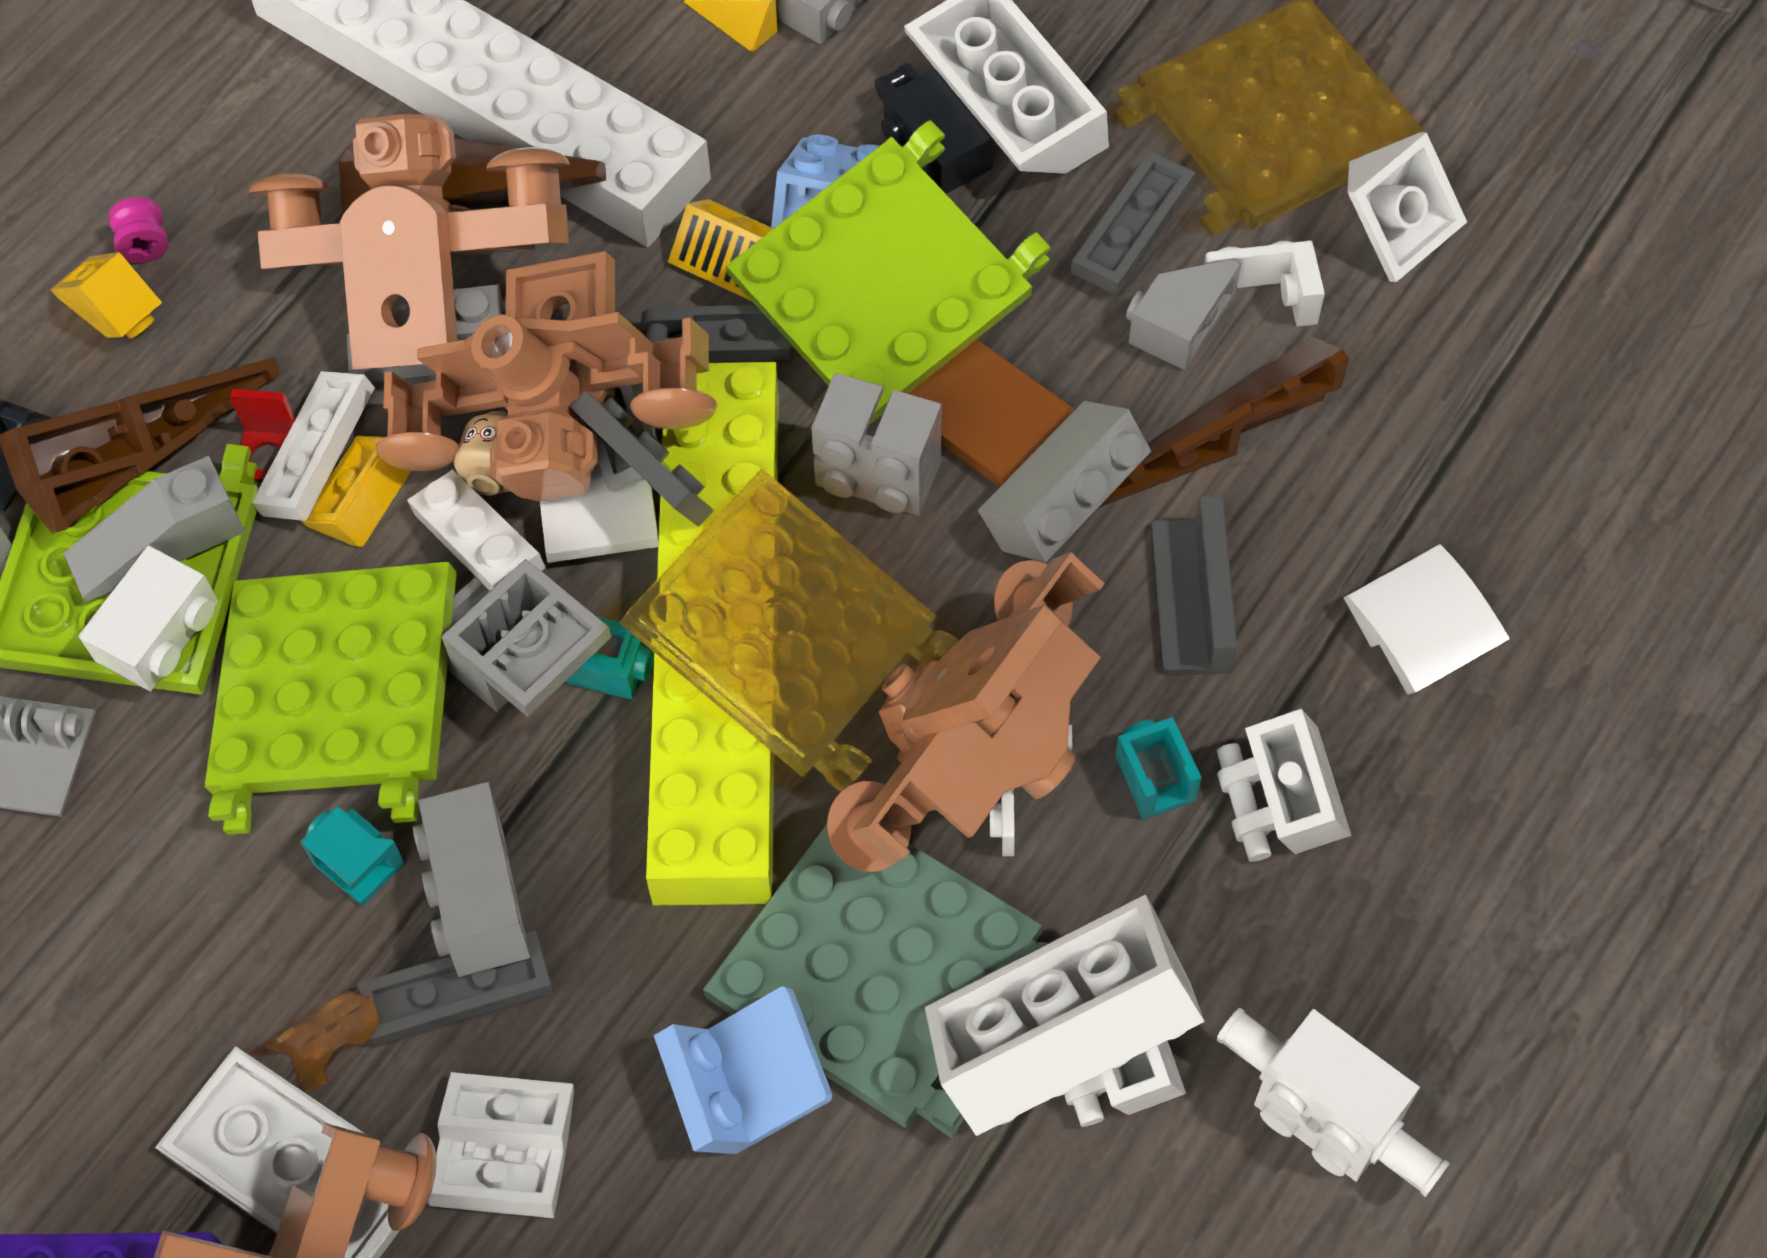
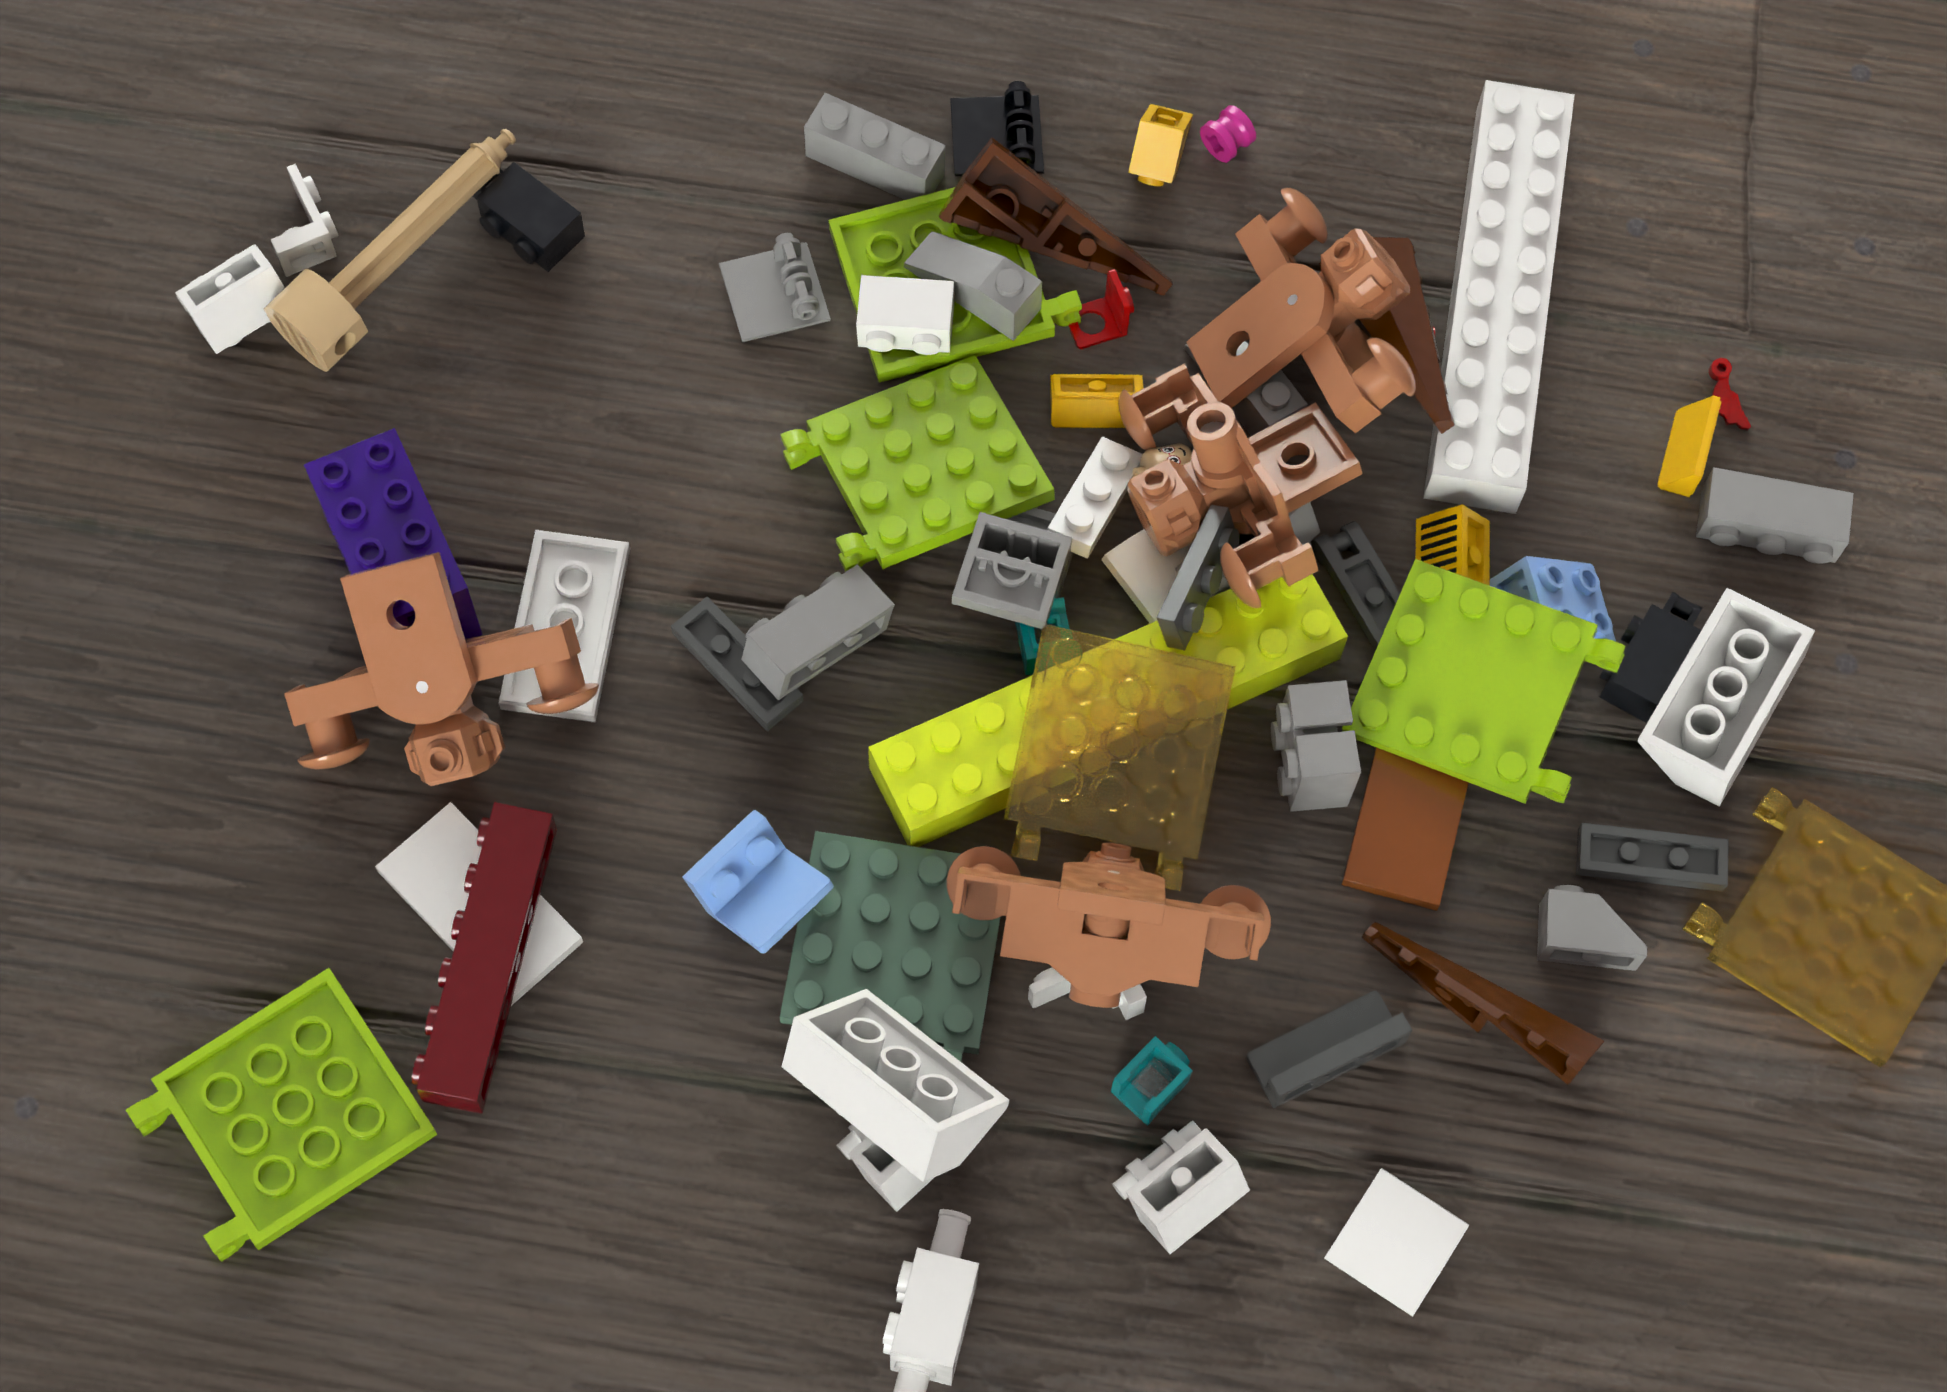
camera: 60 degrees right, 5 degrees up
(313, 445) = (1111, 349): white plate -> none
(313, 1056) = (649, 597): clear orange piece -> none
(351, 853) = (802, 542): teal window -> none
(502, 1144) = (640, 751): white slope -> none
(1064, 481) = (1367, 903): light grey brick -> none
(1283, 263) = (1678, 993): white bracket -> none
(1404, 202) = (1790, 1068): white slope -> none

